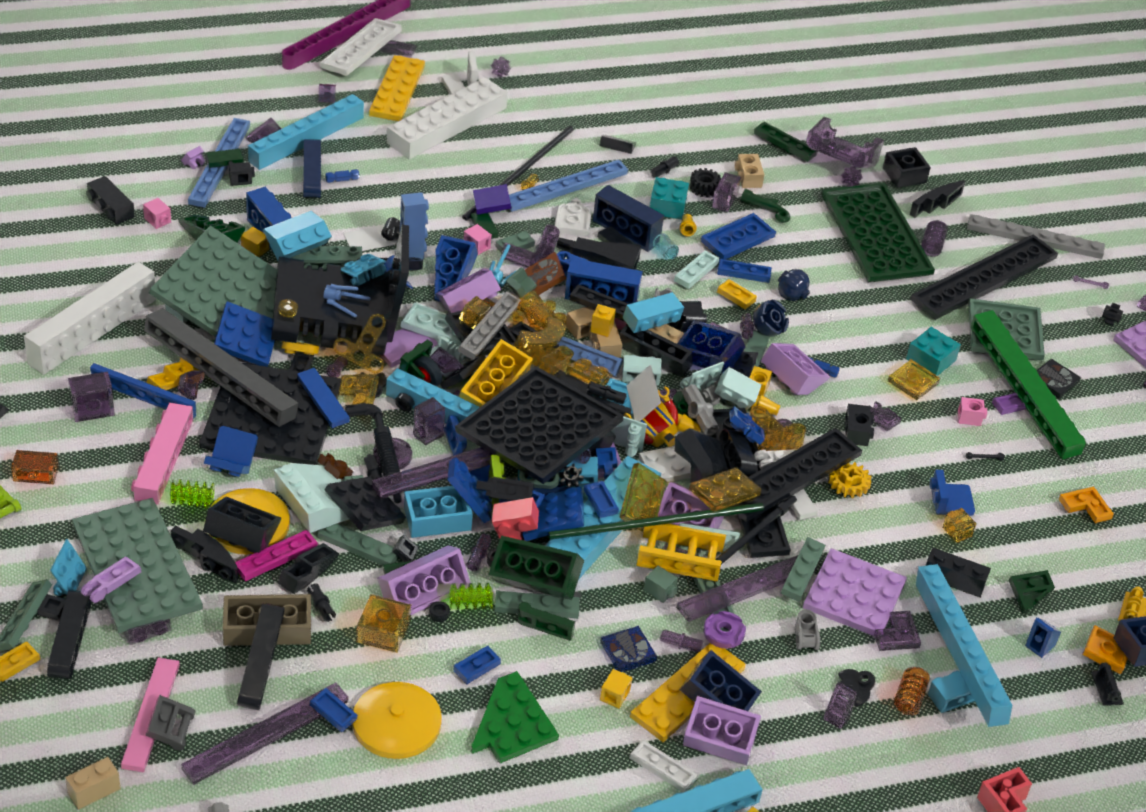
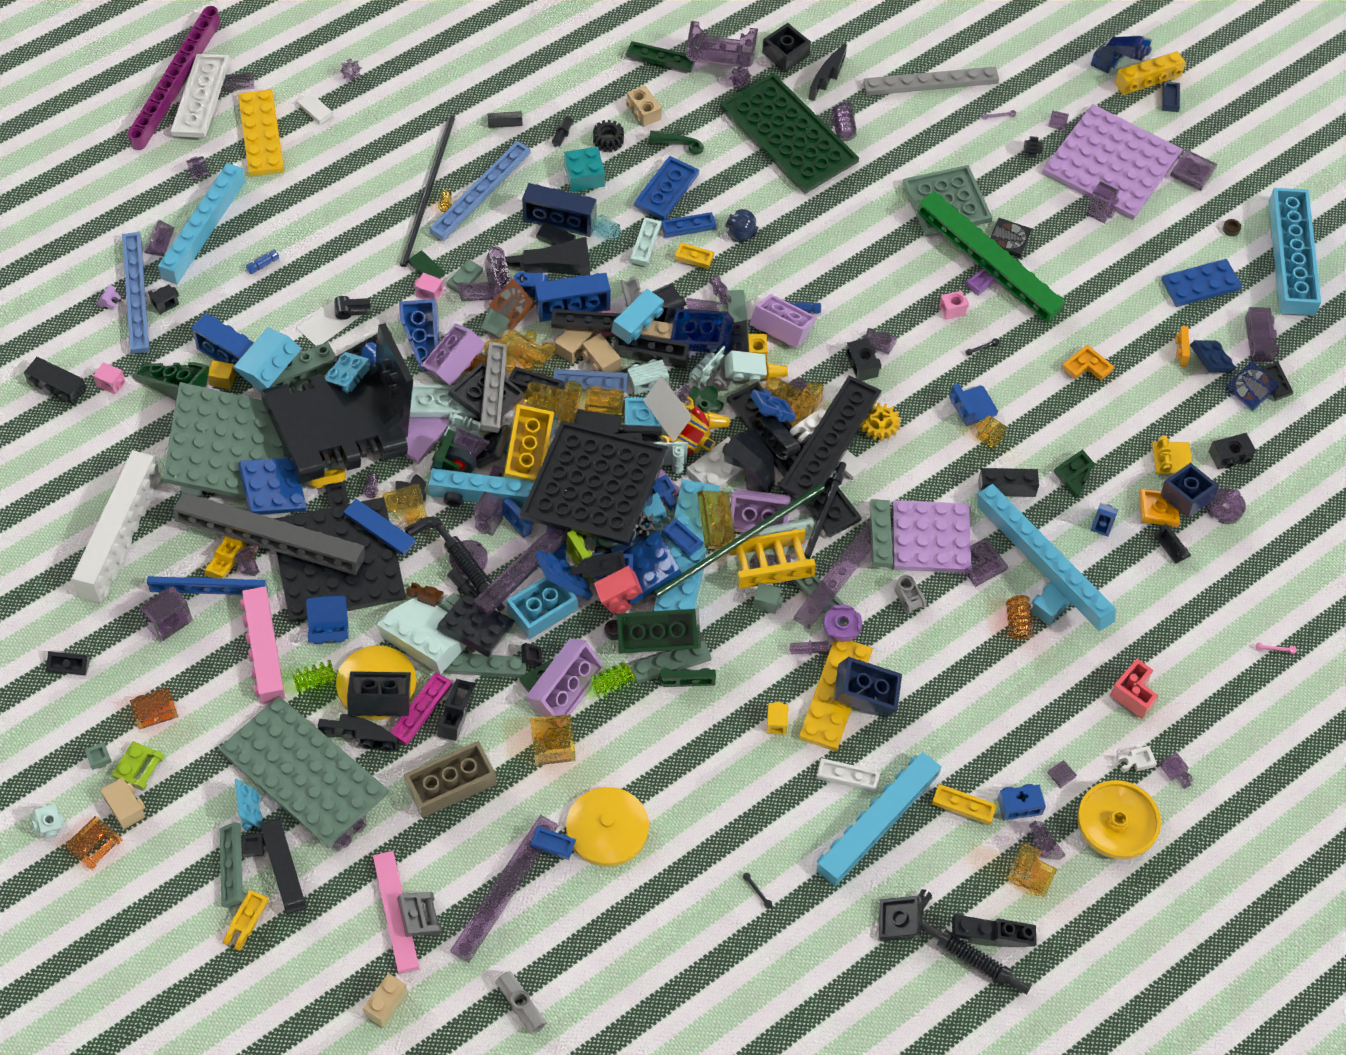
camera: 20 degrees left, 15 degrees up
(110, 579) = (296, 800): lavender hinge -> none
(222, 158) = (140, 288): dark green tile -> none
(260, 656) = (467, 820): black beam -> none
(288, 308) = (304, 447): clear yellow tile -> none
(312, 168) = (230, 265): dark blue beam -> none
(321, 602) = (485, 739): black pin -> none
(334, 292) = (336, 413): medium blue plant -> none
(360, 345) = (390, 458): clear yellow beam -> none
(414, 214) = (370, 304): medium blue brick -> none
(439, 611) = (590, 704): black tile -> none
(446, 118) = (329, 153): white brick -> none
(472, 71) = (329, 91): white plate -> none
(474, 312) = (474, 379): clear yellow brick -> none
(477, 664) = (649, 744): blue plate -> none
(478, 552) = (596, 630): clear purple axle -> none
(492, 199) = (421, 236): dark purple tile -> none
(497, 273) = (467, 321): medium azure plant -> none
(513, 721) = (705, 785): green wing -> none
(549, 336) = (554, 381): clear yellow tile -> none
(573, 218) = (505, 226): white tile -> none
(603, 320) = (594, 341): yellow brick -> none
(606, 392) = (632, 418): black pin -> none
(628, 649) = (768, 674): clear blue tile -> none
(687, 225) = (615, 193): yellow cone -> none
(700, 410) = (722, 402): light grey piece -> none
(721, 730) = (885, 724): lavender slope -> none
(725, 489) = (784, 482): clear yellow plate -> none
(726, 192) = (635, 141): clear purple brick -> none
(770, 318) = (739, 275): dark blue cylinder -> none
(840, 708) = (968, 659): clear purple slope -> none
(852, 679) = (968, 631): black plate -> none
(913, 379) = (890, 289): clear yellow plate -> none
(933, 351) = (895, 252): teal brick -> none
(983, 276) = (904, 147): black plate -> none

